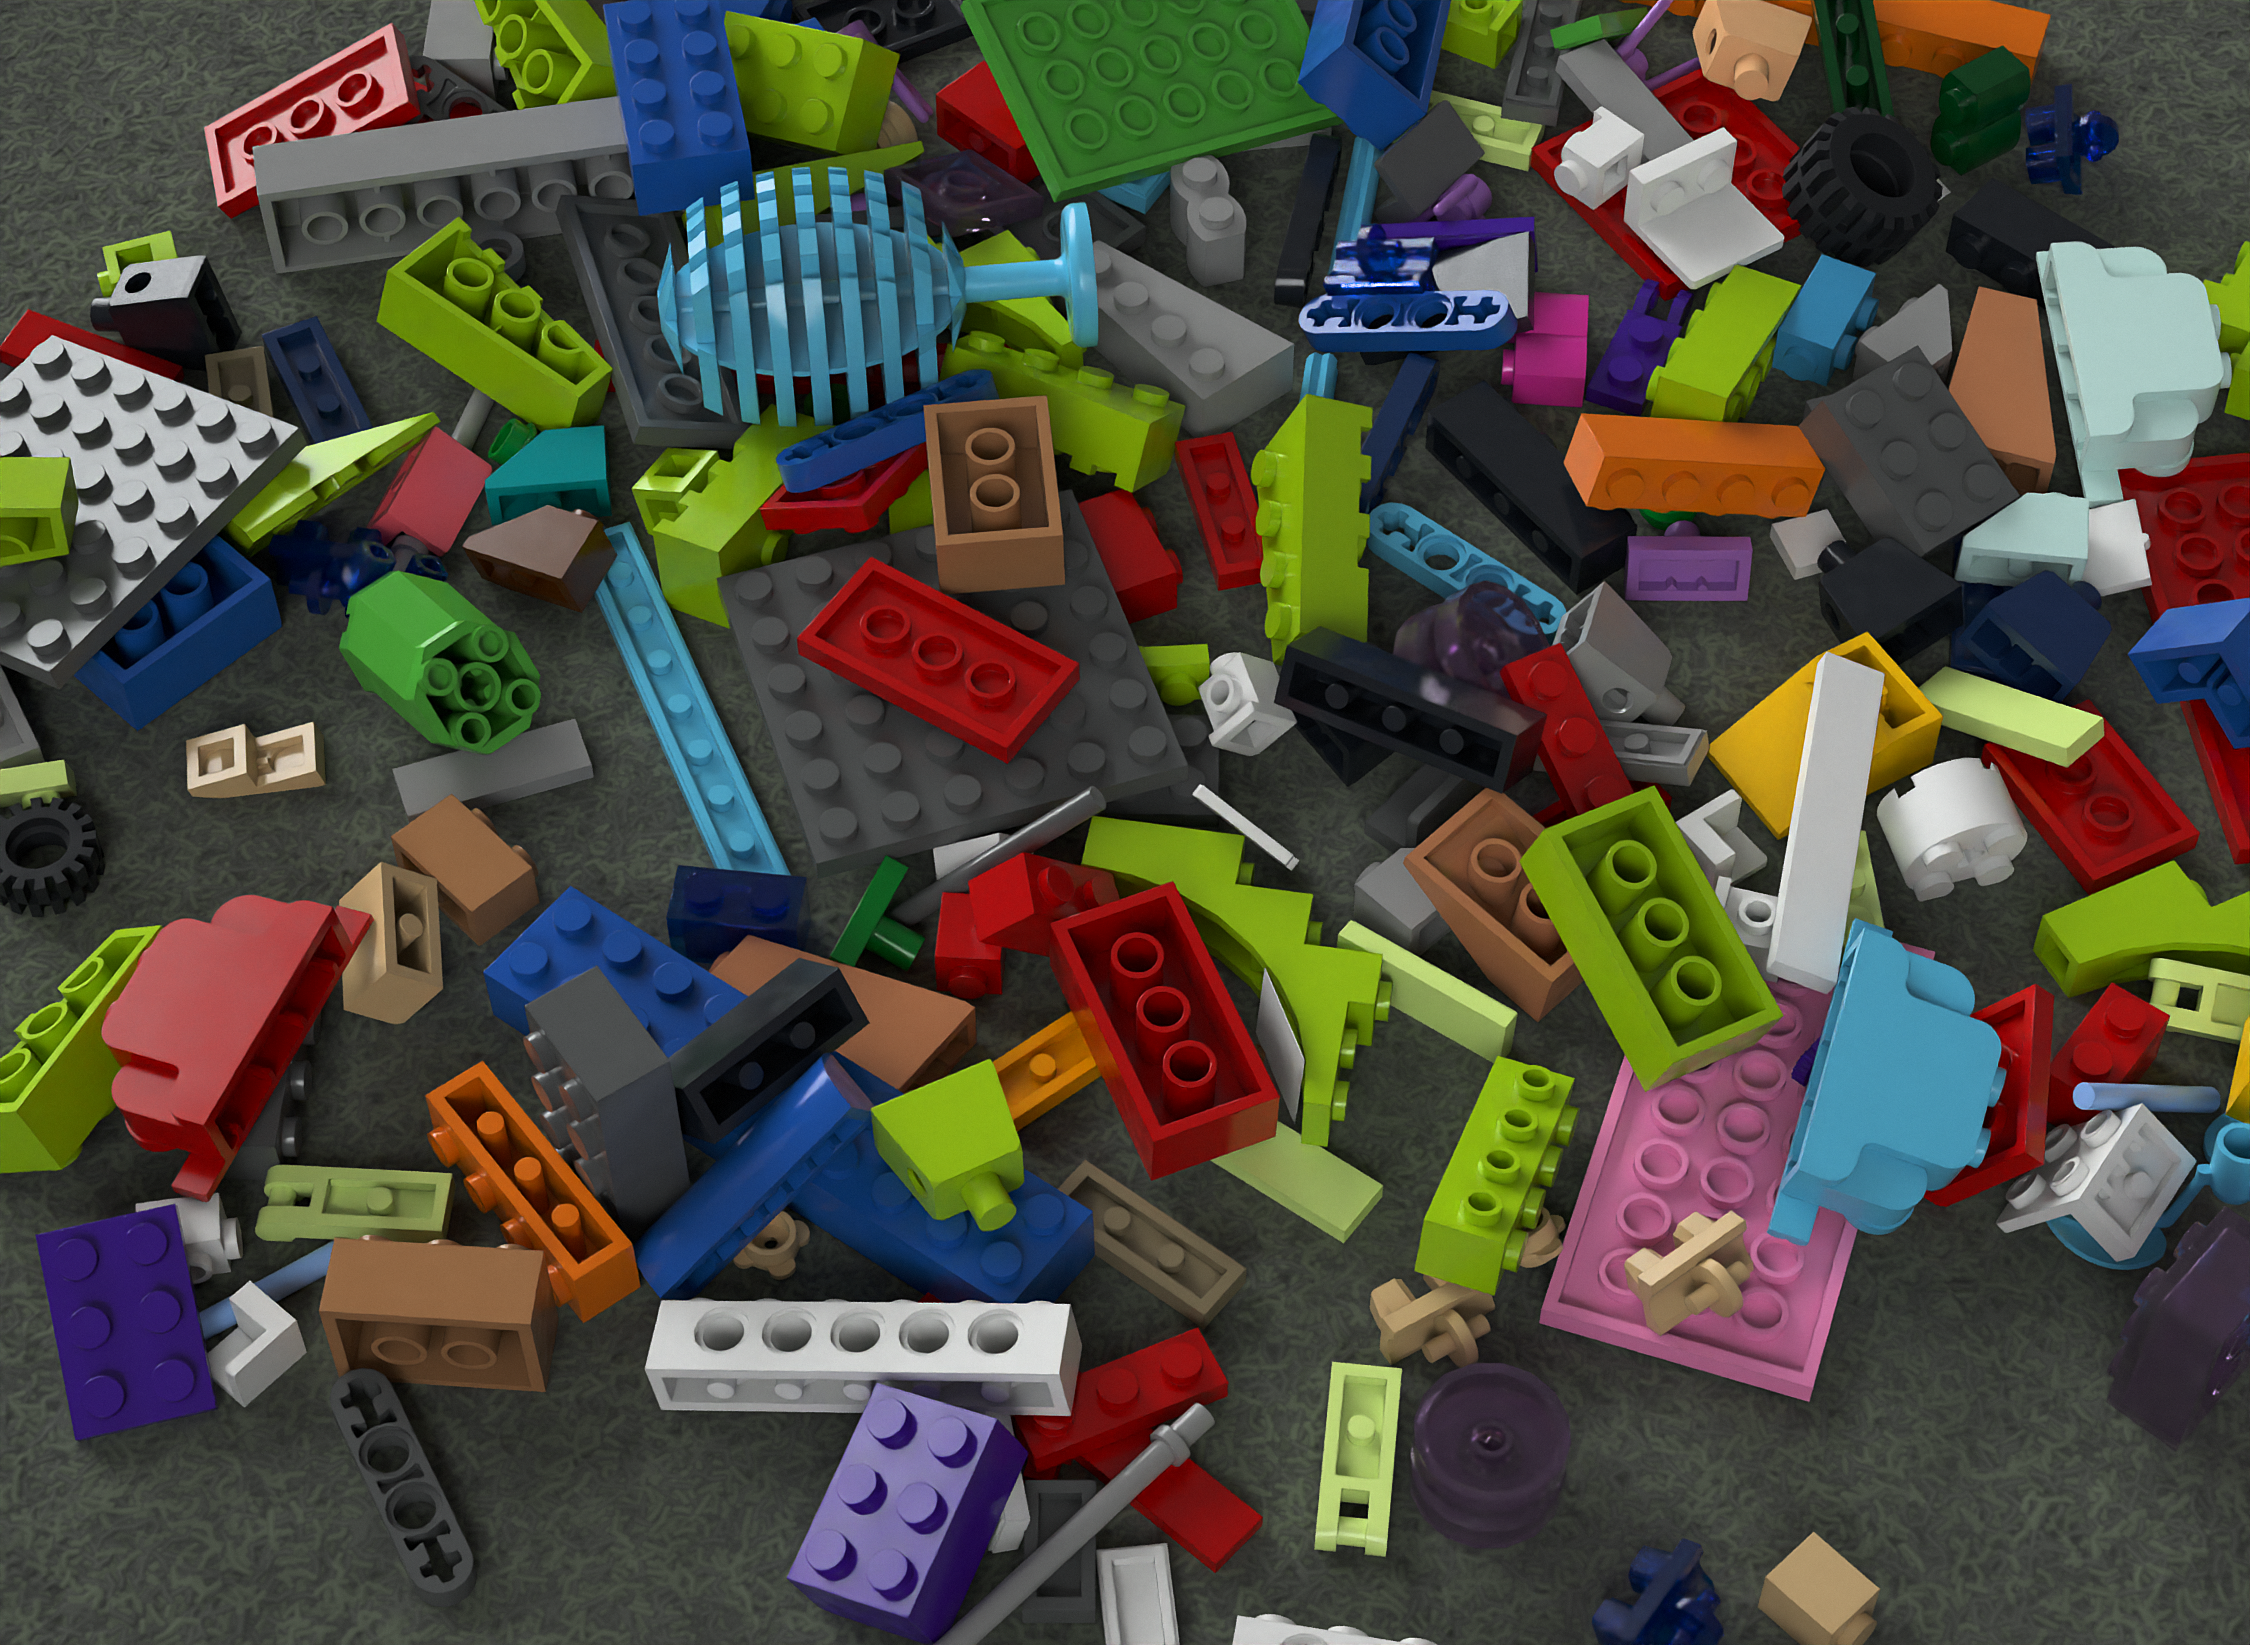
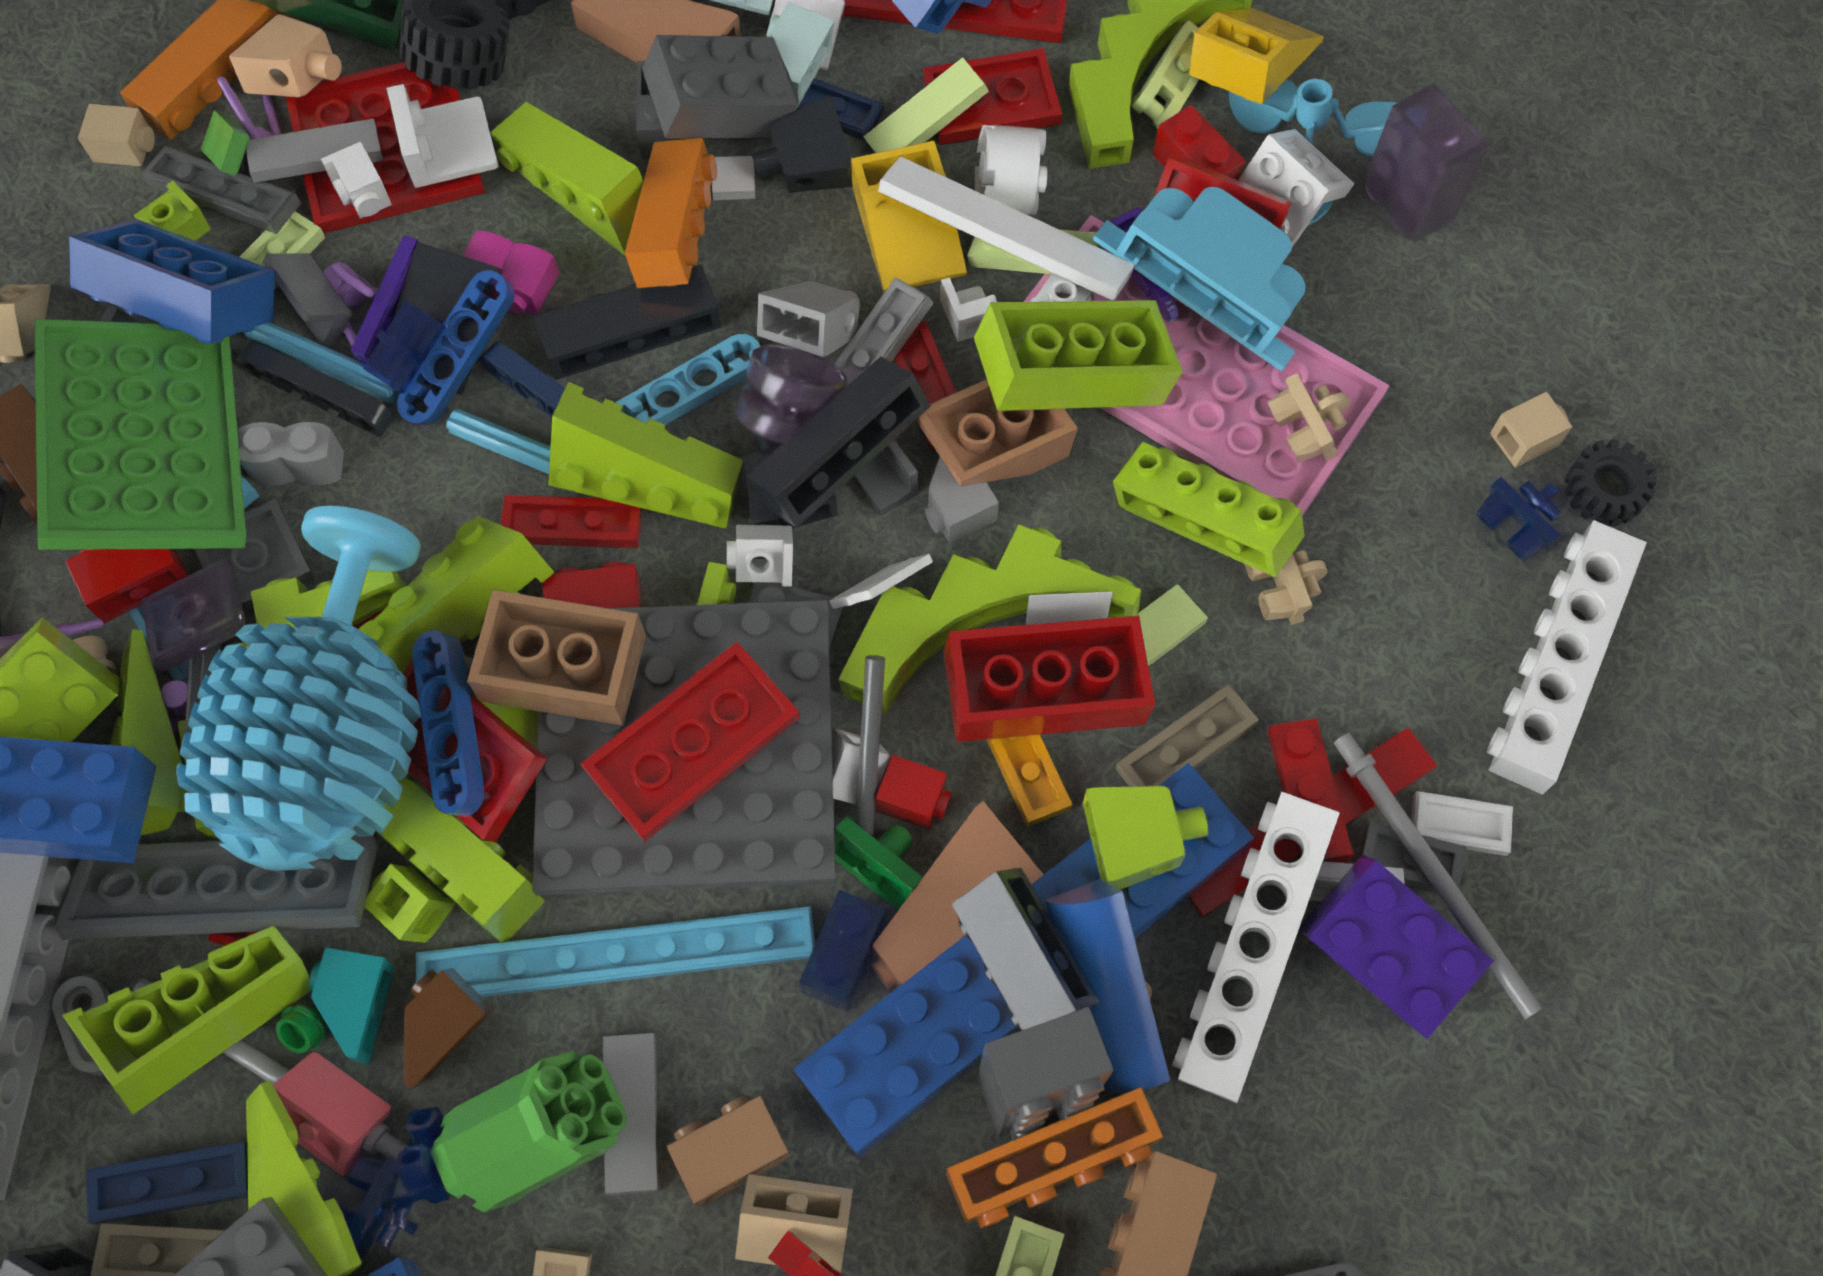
camera: 75 degrees left, 15 degrees up
(1028, 893) = (918, 729): red brick -> none
(1185, 344) = (424, 492): light grey wedge -> none
(1358, 1456) = (1378, 657): yellowish green plate -> none
(1437, 996) = (1038, 510): yellowish green tile -> none
(1489, 1455) = (1407, 576): clear purple wheel -> none
(1572, 739) = (852, 352): red plate -> none
(1636, 351) = (524, 218): dark purple hinge -> none
(1687, 566) = (733, 251): medium lavender tile -> none
(1824, 320) = (551, 93): dark azure brick -> none
(1918, 322) = (601, 63): light grey slope -> none
(2040, 635) = (872, 73): dark blue torso -> none
(2155, 1097) = (1240, 140): light blue bar -> none

